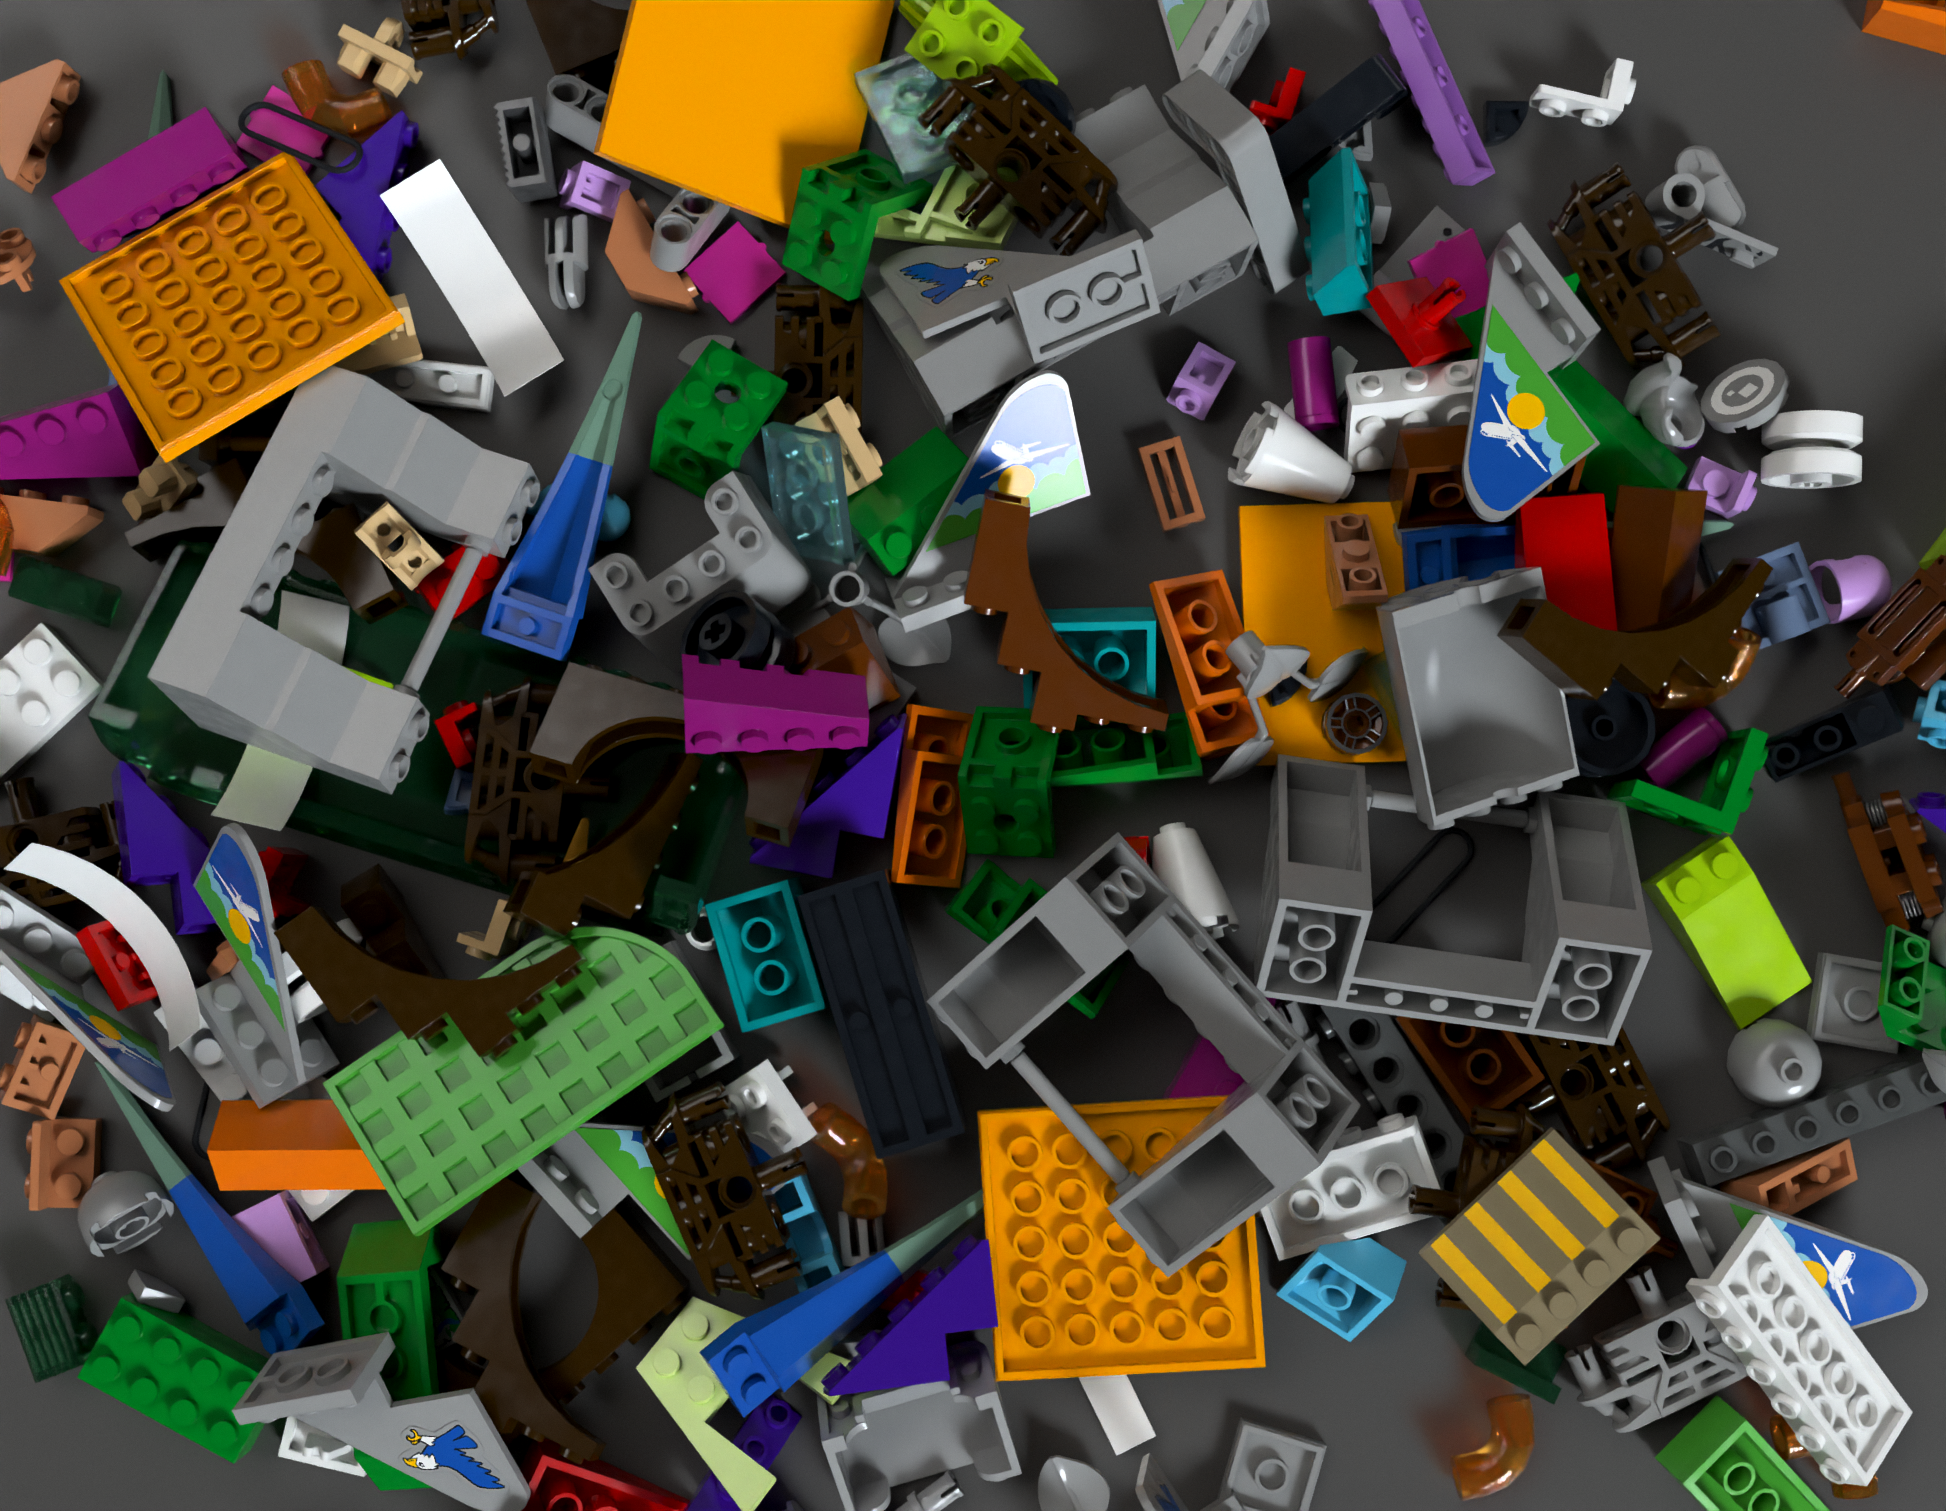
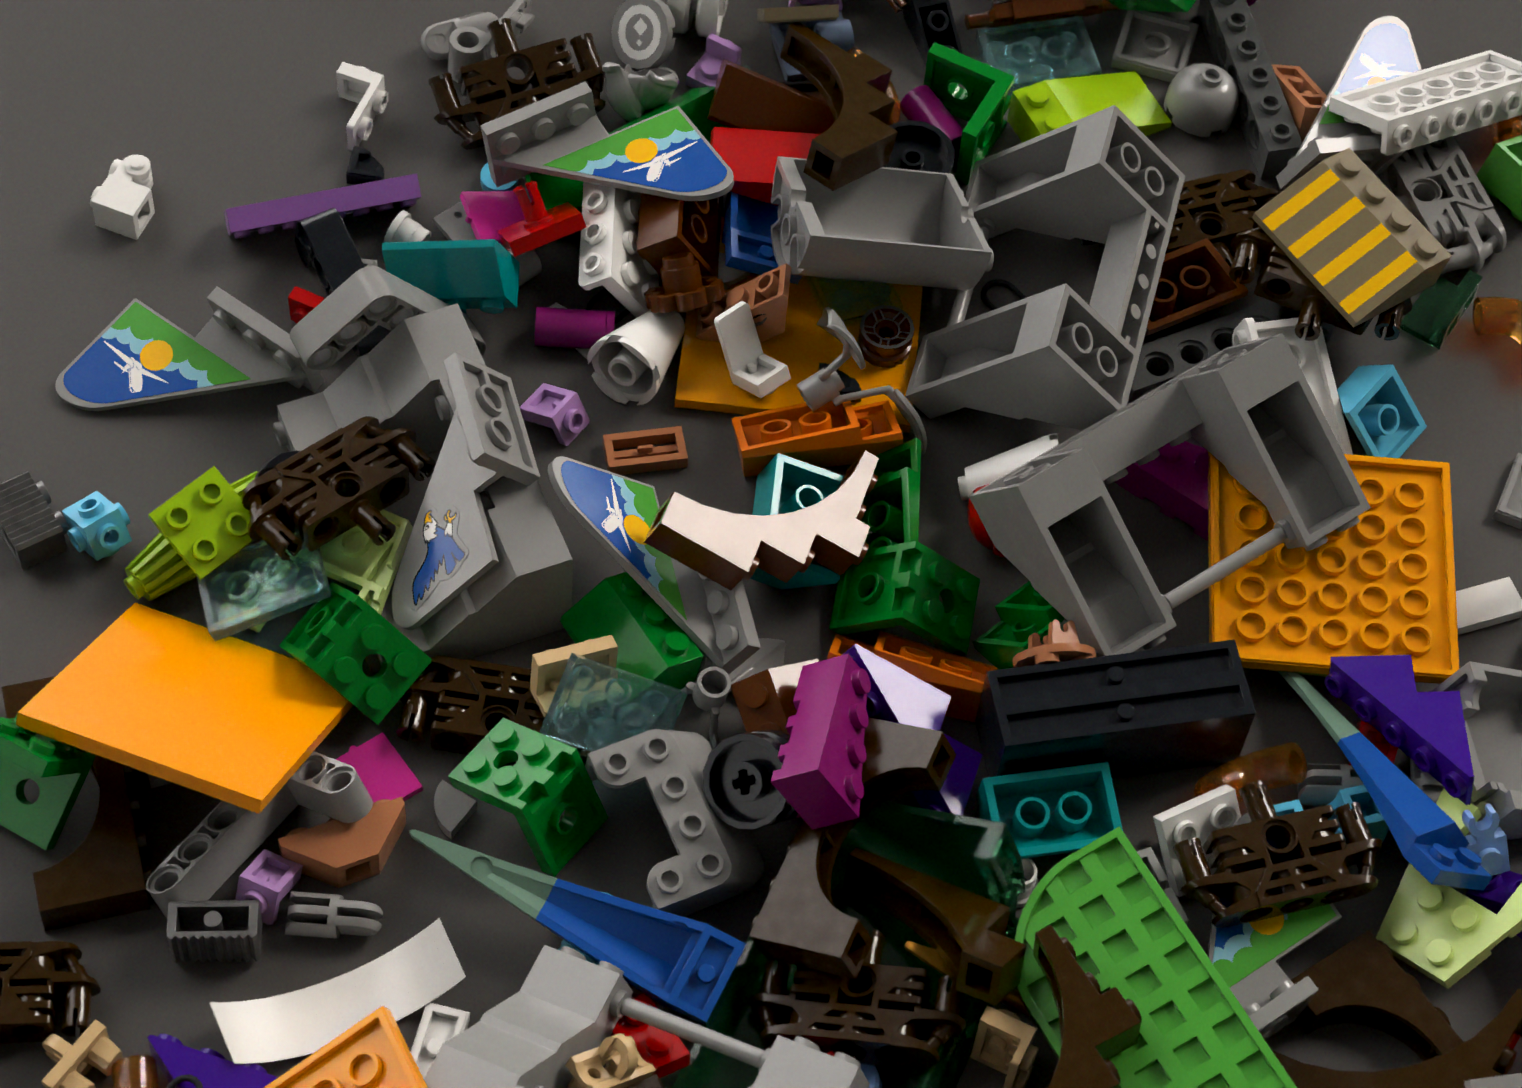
camera: 85 degrees left, 30 degrees down
(795, 1409) = (1488, 841): none -> light blue plate
(934, 938) = (1056, 647): none -> nougat plate
(1291, 575) = (744, 354): none -> white bracket
(1361, 491) = (683, 286): none -> reddish brown plant
(1411, 182) = (406, 230): none -> white piece
(1791, 570) = (797, 13): none -> dark tan piece
(1810, 863) = (1039, 50): none -> clear light blue plate

